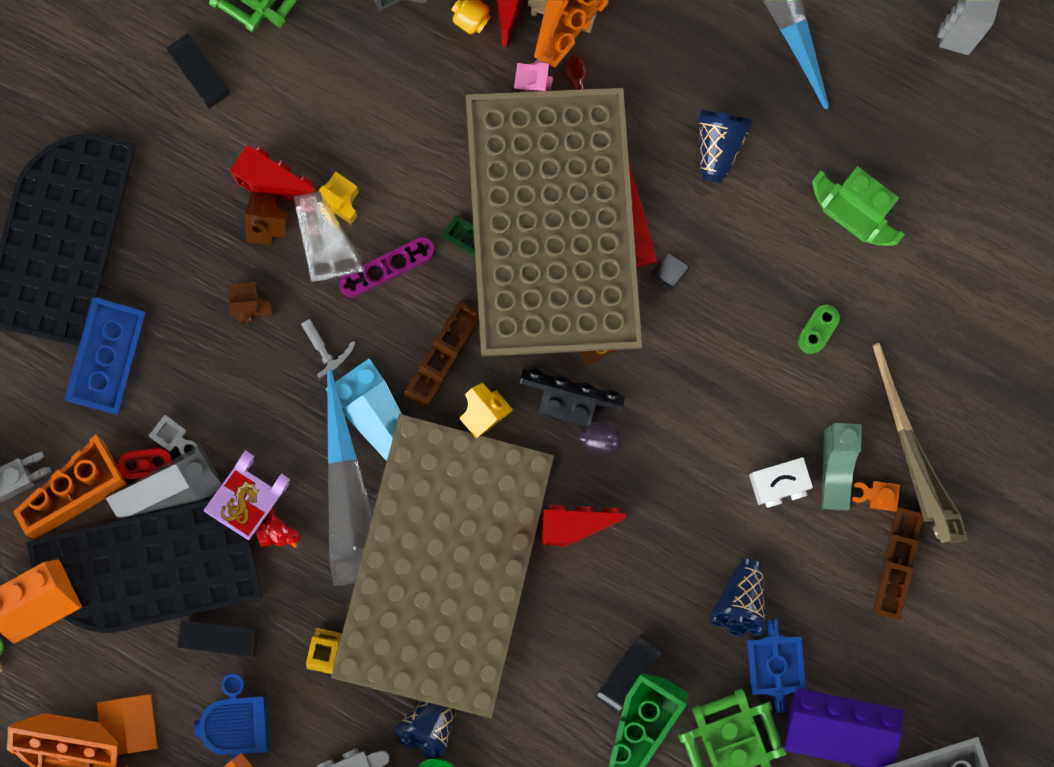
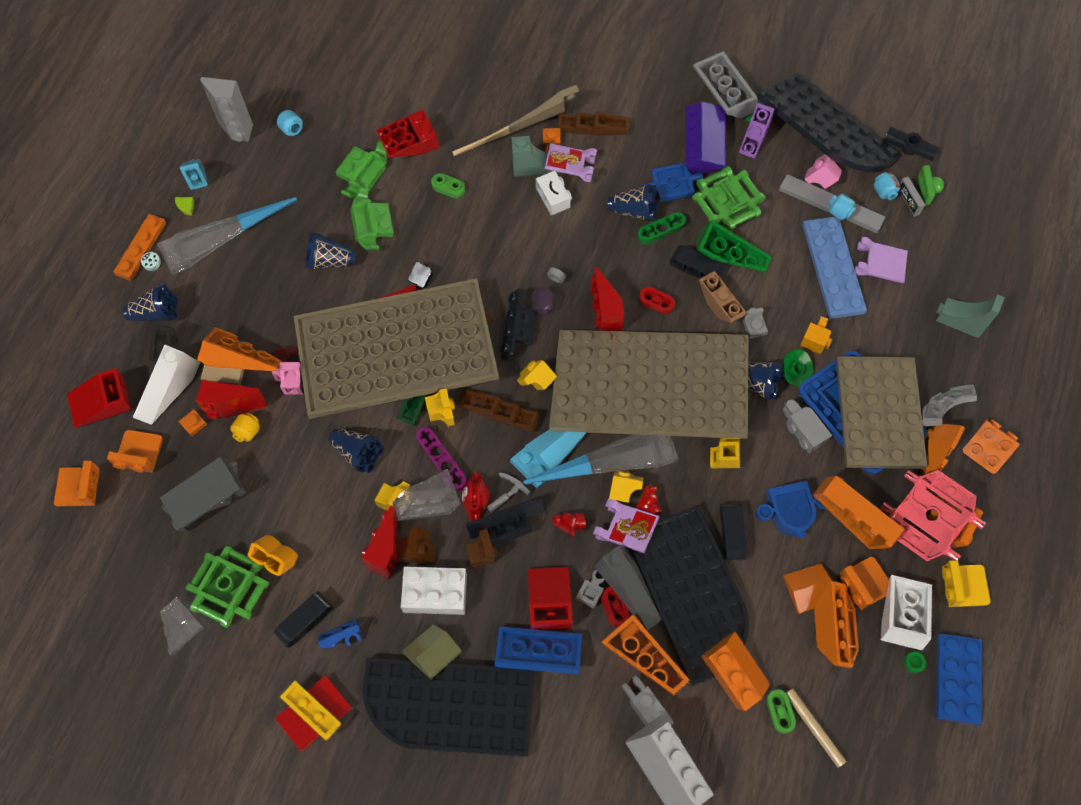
camera: 90 degrees left, 15 degrees down
(80, 70) = (310, 710): none -> yellow plate
(81, 75) = (297, 728): none -> red tile
(128, 223) = (432, 651): none -> olive slope
(169, 380) = (550, 598): none -> red slope
(172, 113) = (332, 637): none -> blue plate
(204, 235) = (434, 590): none -> white brick
(267, 422) = (569, 522): none -> red animal
(278, 343) = (507, 523): none -> black bracket
(285, 38) = (272, 555): none -> light orange brick
(304, 504) = (624, 484): none -> yellow brick
(327, 306) = (475, 497): none -> red hat
(414, 155) = (357, 448): none -> dark blue cone
(458, 275) = (440, 407): none -> yellow brick
(522, 739) = (755, 323): none -> light grey bracket
(562, 695) = (720, 298): none -> medium nougat slope
(579, 603) = (657, 300): none -> red plate
(641, 464) = (556, 275): none -> light grey tile
(714, 651) = (666, 221): none -> green beam
(770, 209) = (370, 220): none -> bright green plate
(831, 512) = (571, 161): none -> lavender flag
(907, 278) = (408, 136): none -> red slope
(956, 107) = (289, 123): none -> medium azure head

